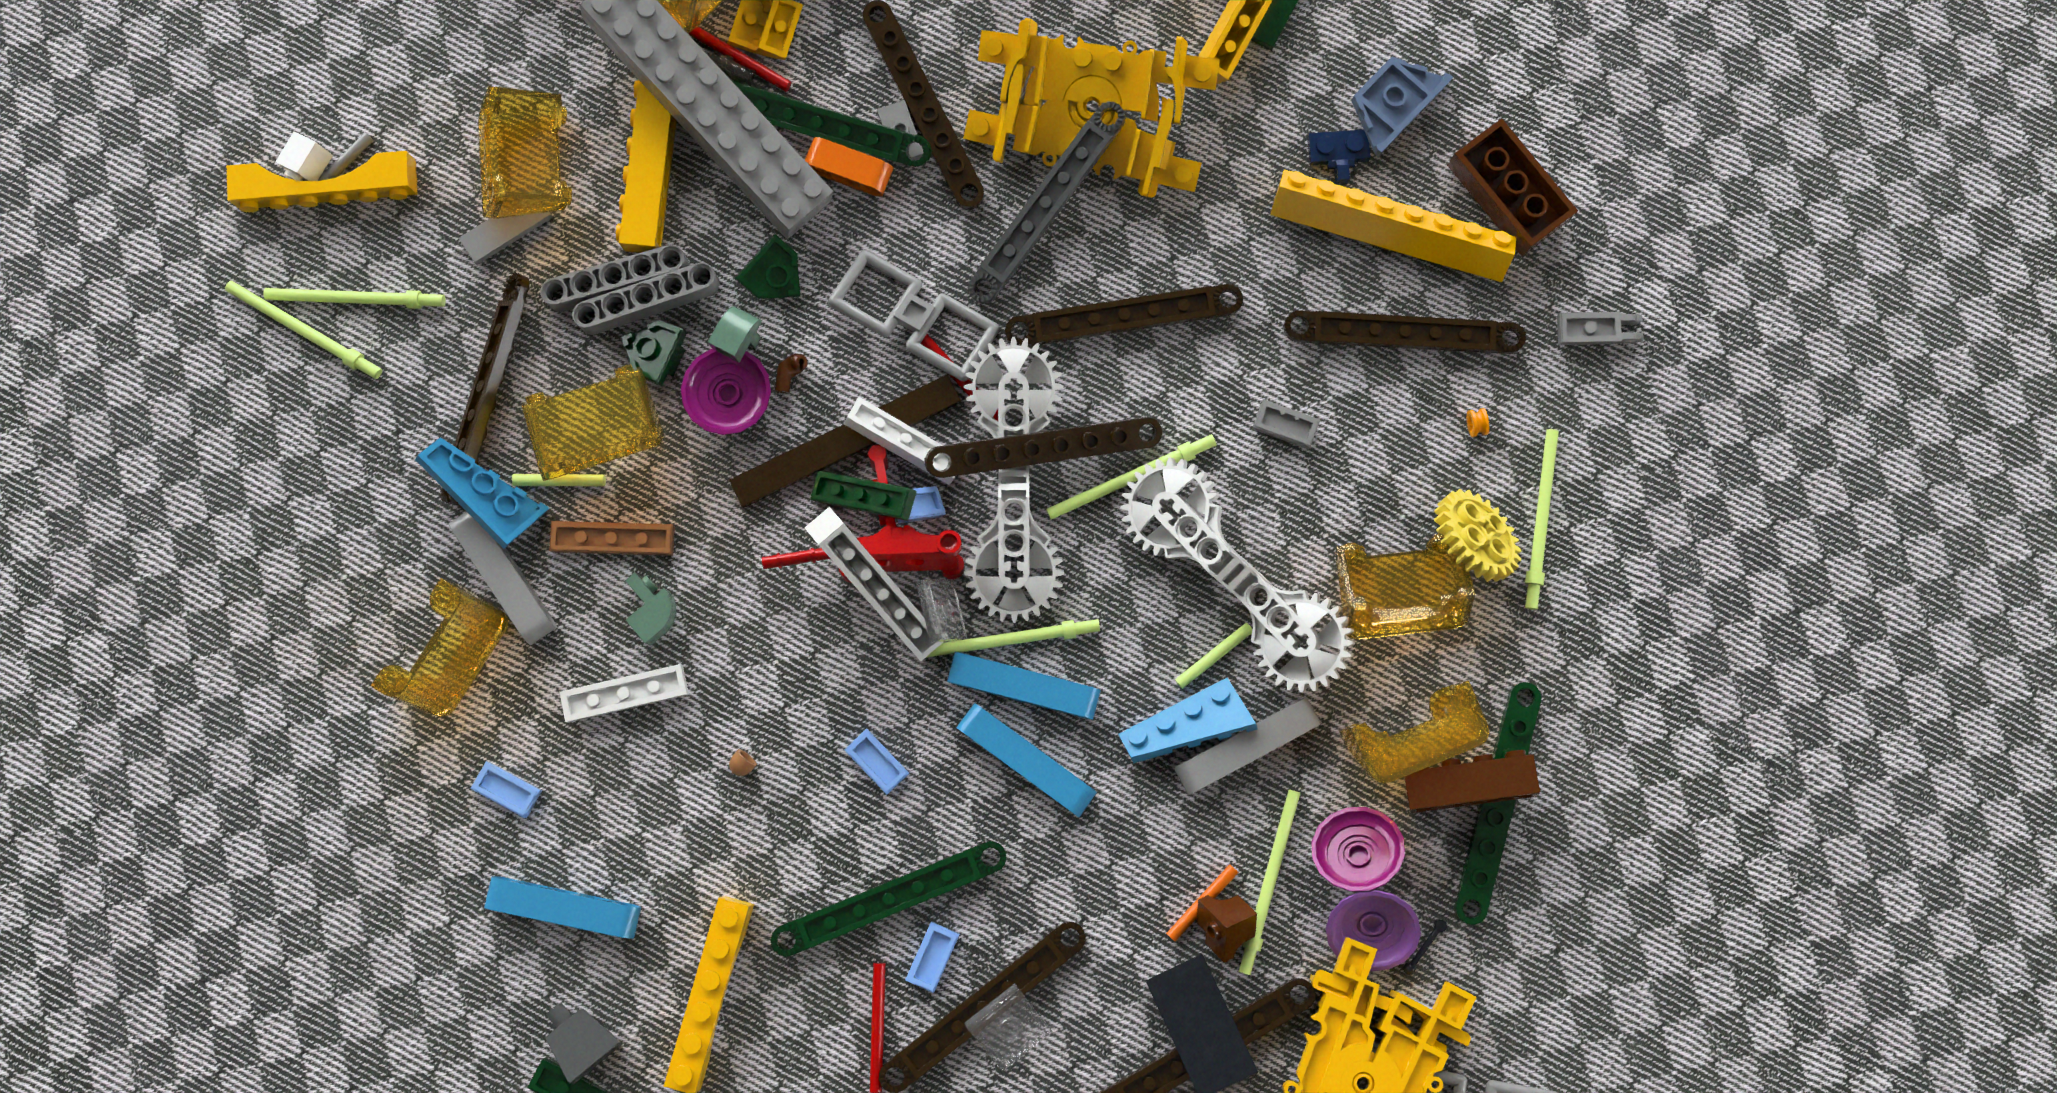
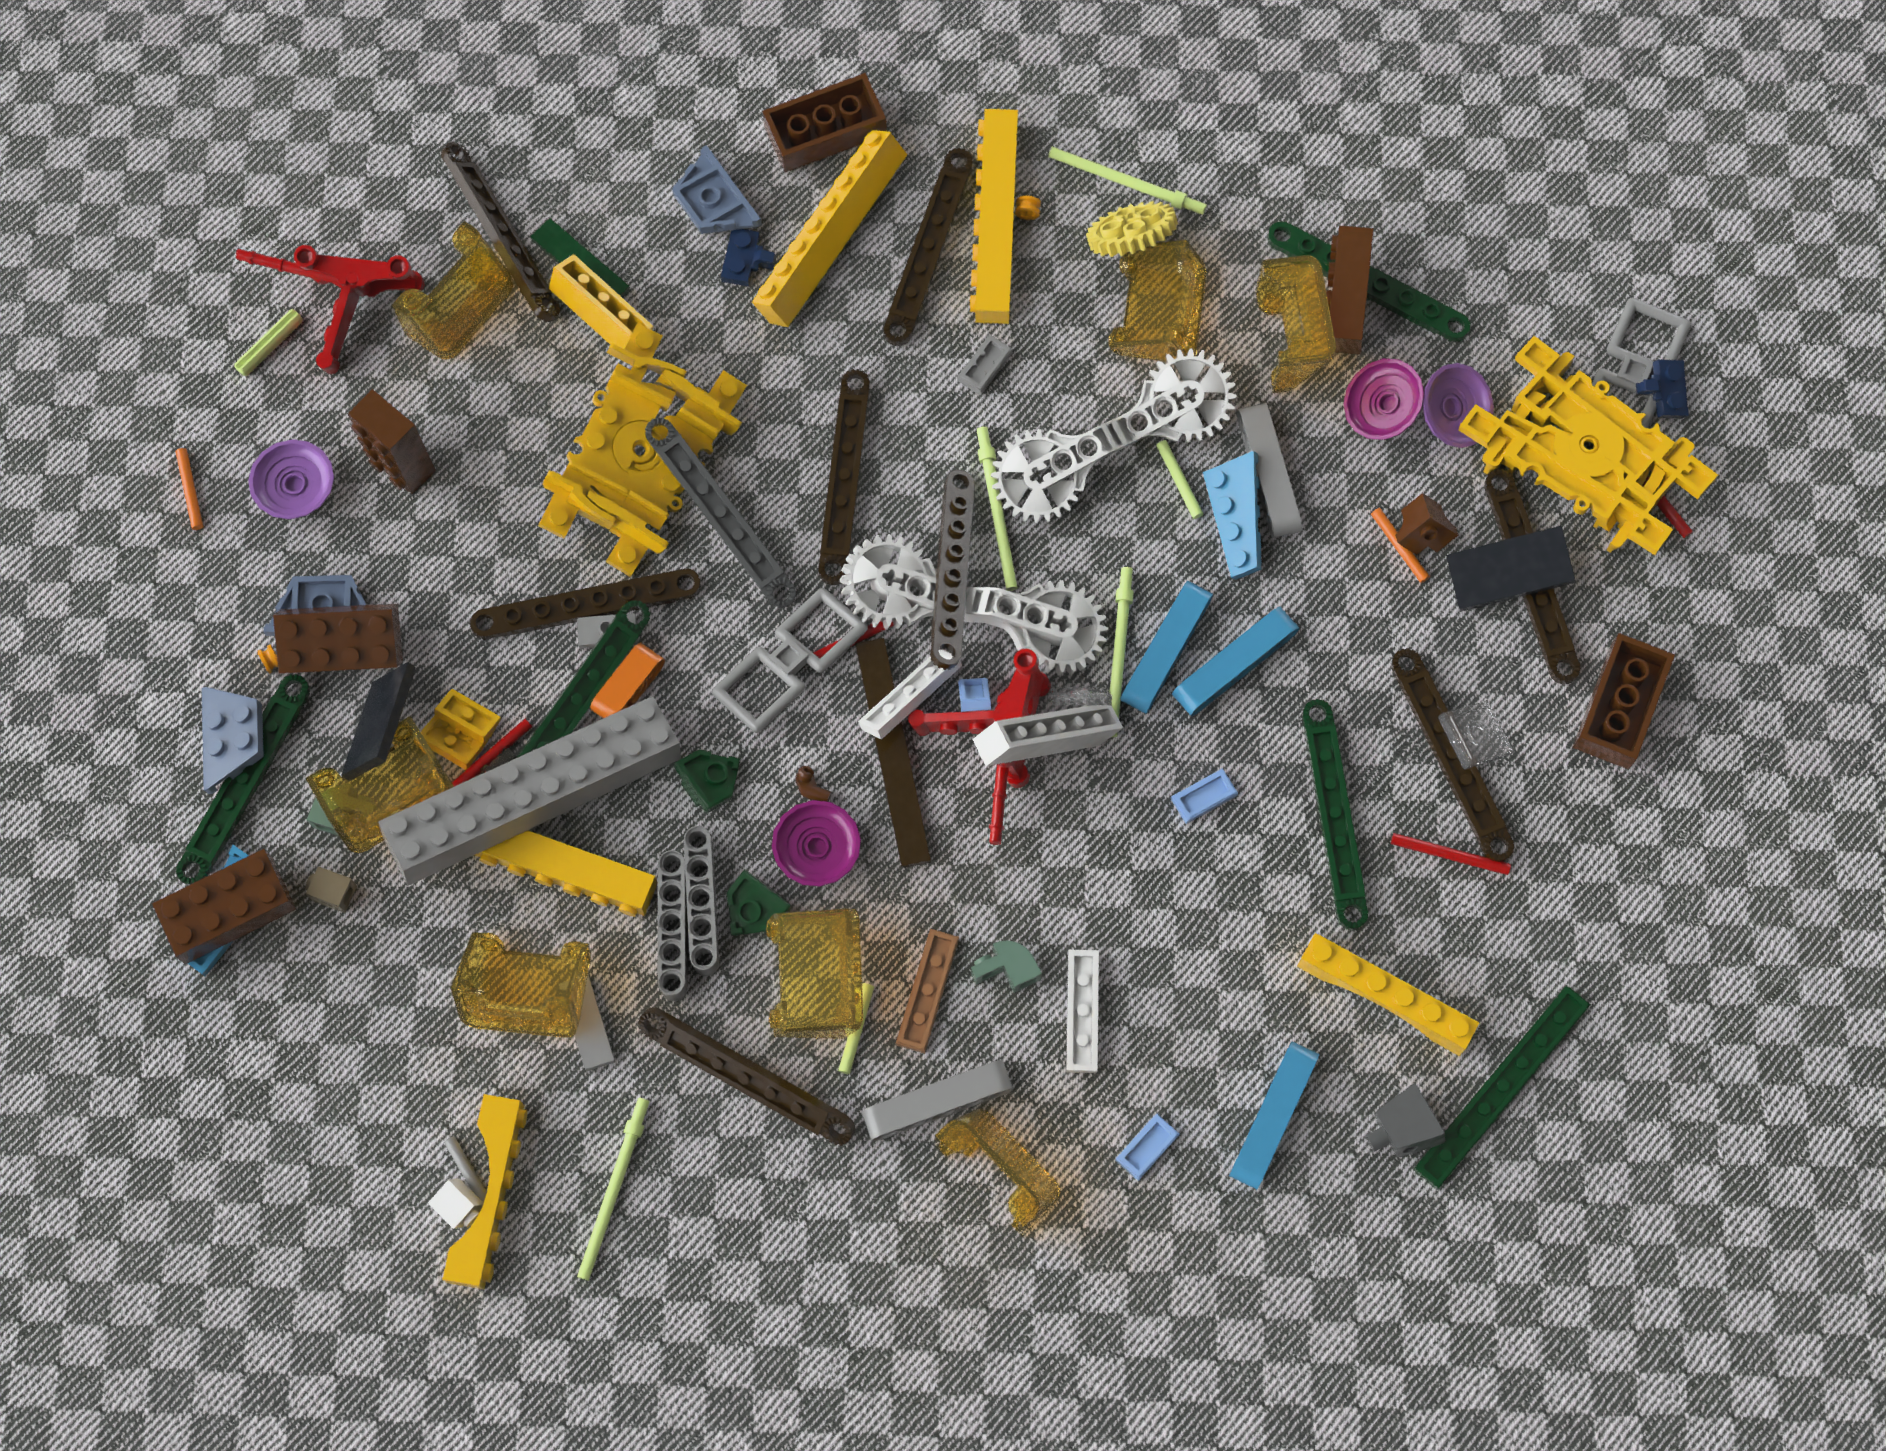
camera: 75 degrees left, 10 degrees down
(349, 357) = (675, 1204): yellowish green bar -> none
(493, 503) = (864, 1088): dark azure wing -> none
(735, 333) = (766, 817): sand green brick -> none
(741, 763) = (1177, 918): medium nougat hinge -> none
(863, 495) = (954, 737): dark green tile -> none
(932, 957) = (1396, 789): light blue tile -> none
(1255, 944) = (1389, 481): yellowish green bar -> none
(1439, 926) = (1464, 356): black hinge -> none
(1459, 391) = (996, 216): none -> yellow brick
(1597, 328) = (969, 92): light grey hinge -> none

